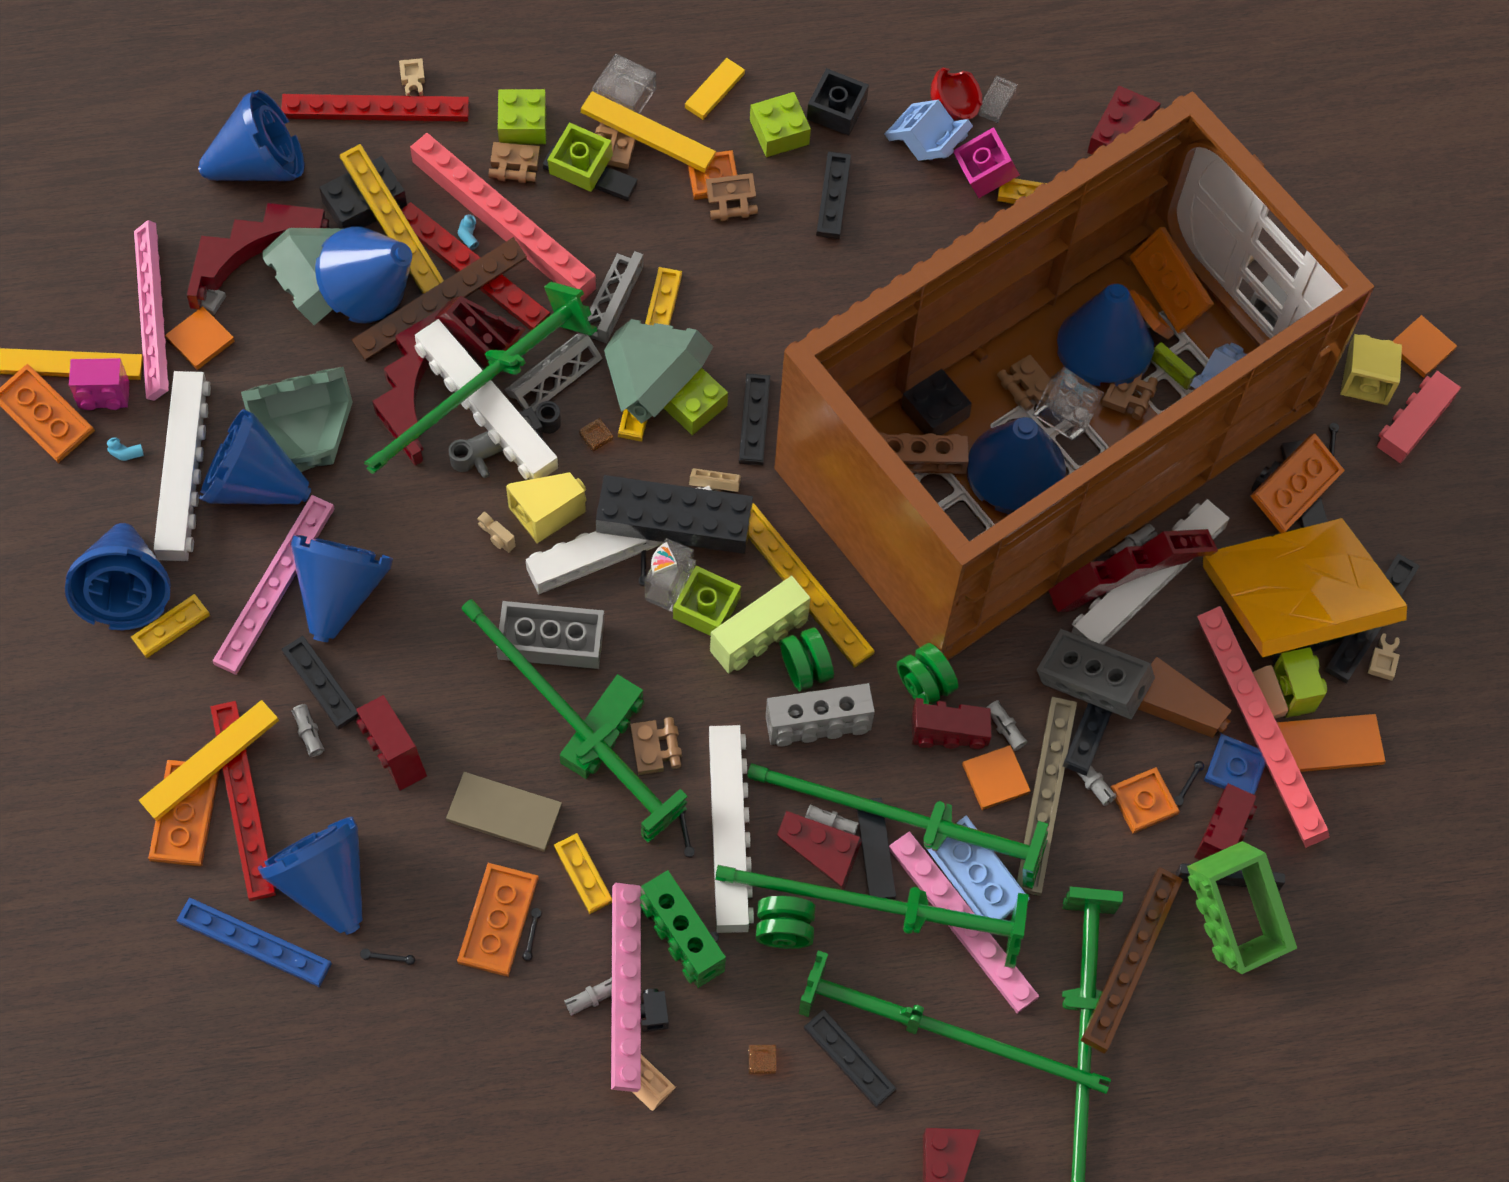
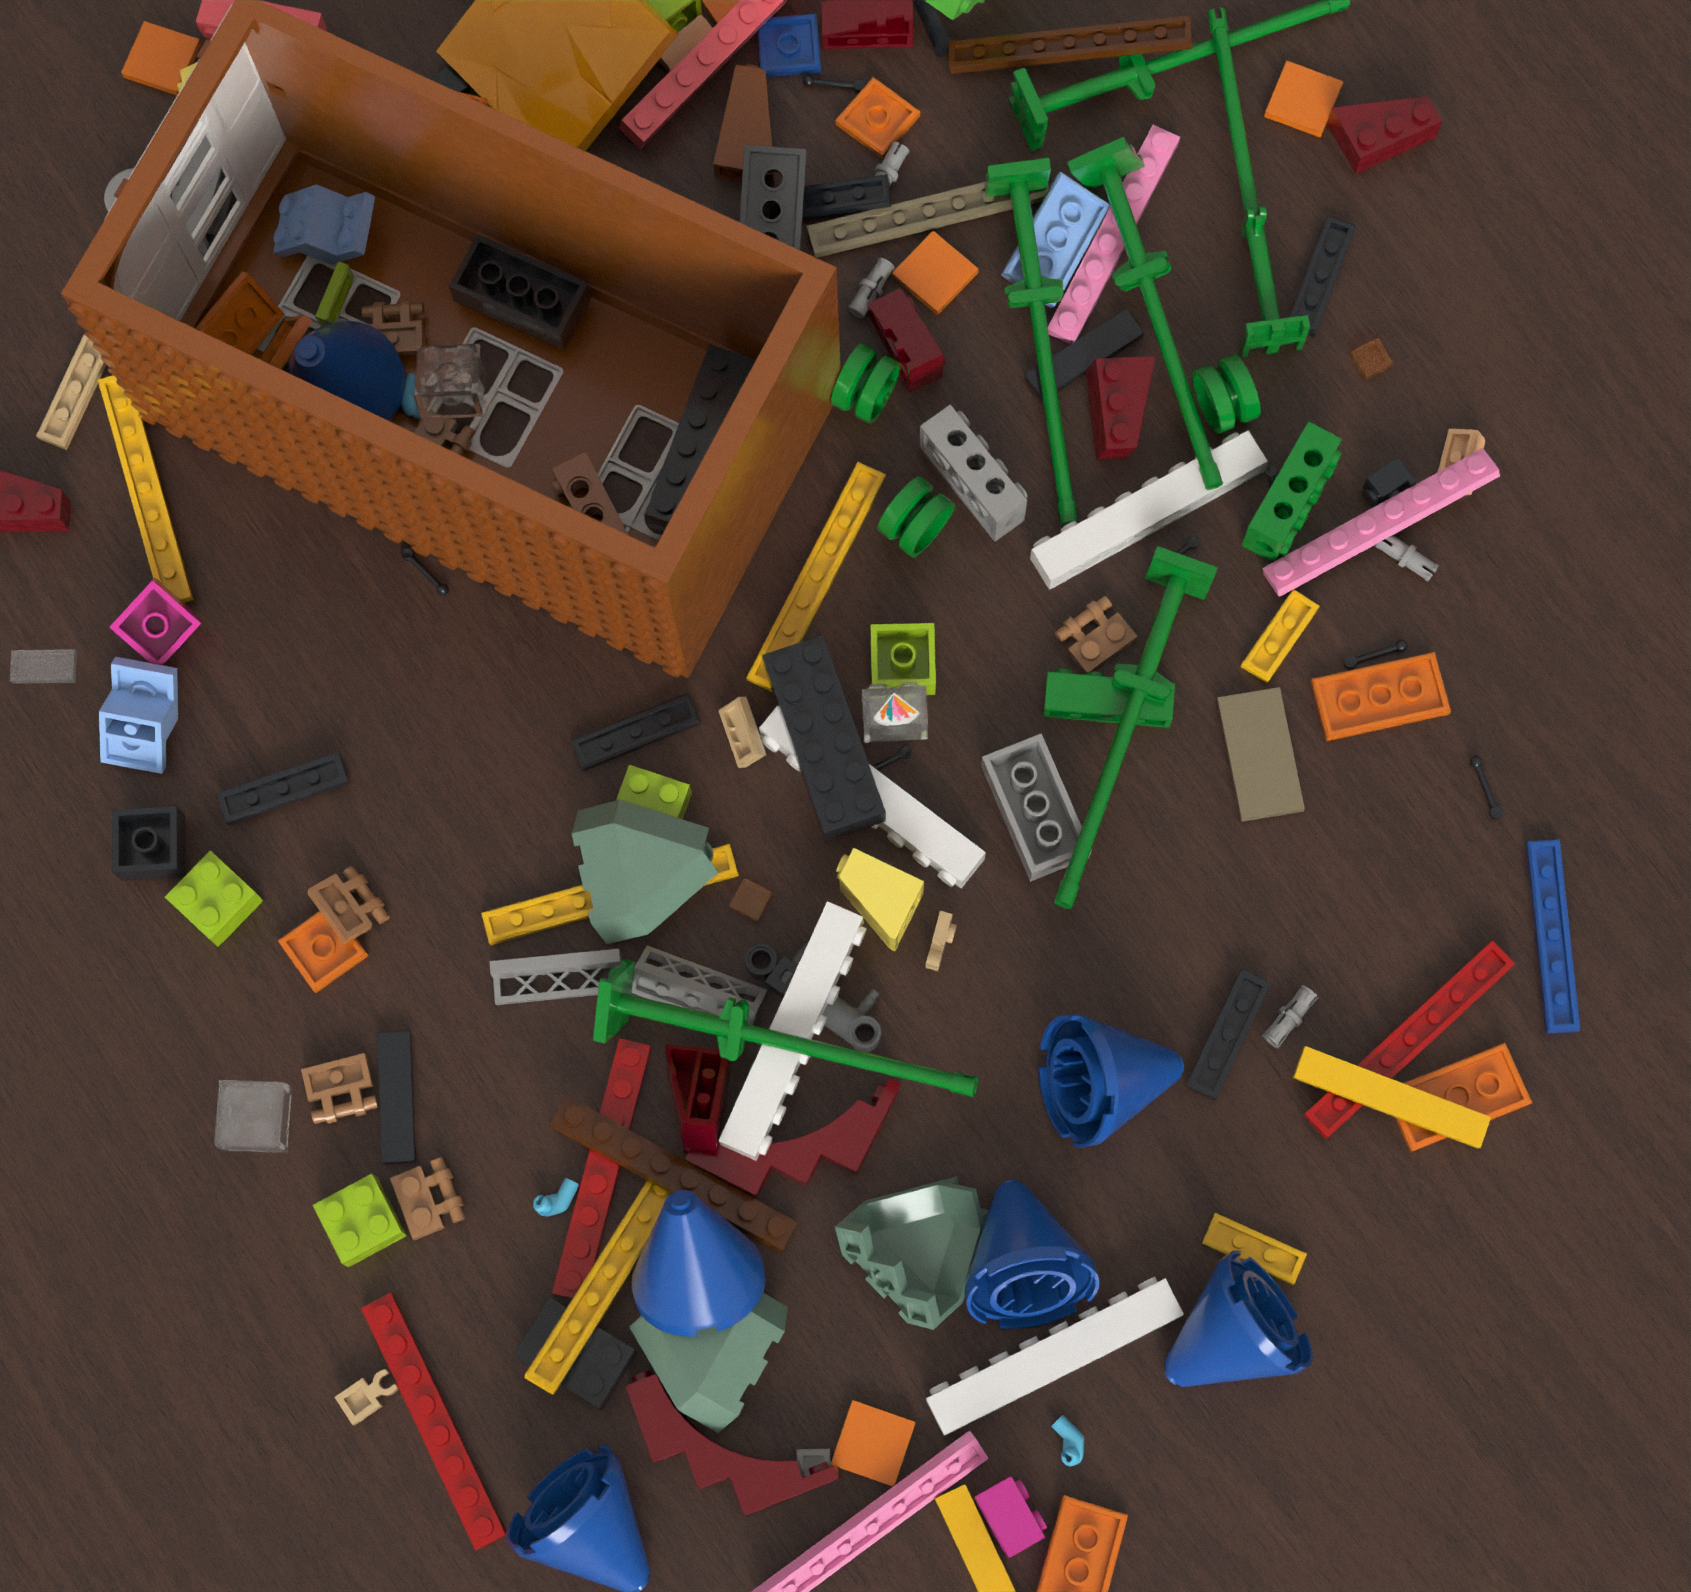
camera: 110 degrees left, 10 degrees up
(270, 588) = (1141, 1157): bright pink plate -> none
(322, 874) = (1447, 901): blue cone -> none
(391, 741) = (1255, 916): dark red wedge -> none
(501, 215) = (518, 1165): coral brick -> none
(580, 157) = (391, 1106): lime brick -> none
(648, 131) = (307, 1050): yellow tile -> none
(714, 88) = (194, 1010): yellow tile -> none
(760, 625) = (901, 585): yellowish green brick -> none
(831, 819) = (1080, 411): light grey pin -> none
(957, 93) = (69, 706): red cylinder -> none
(1006, 1126) = (1303, 99): none -> orange tile
(1014, 464) = (556, 407): blue cone -> none

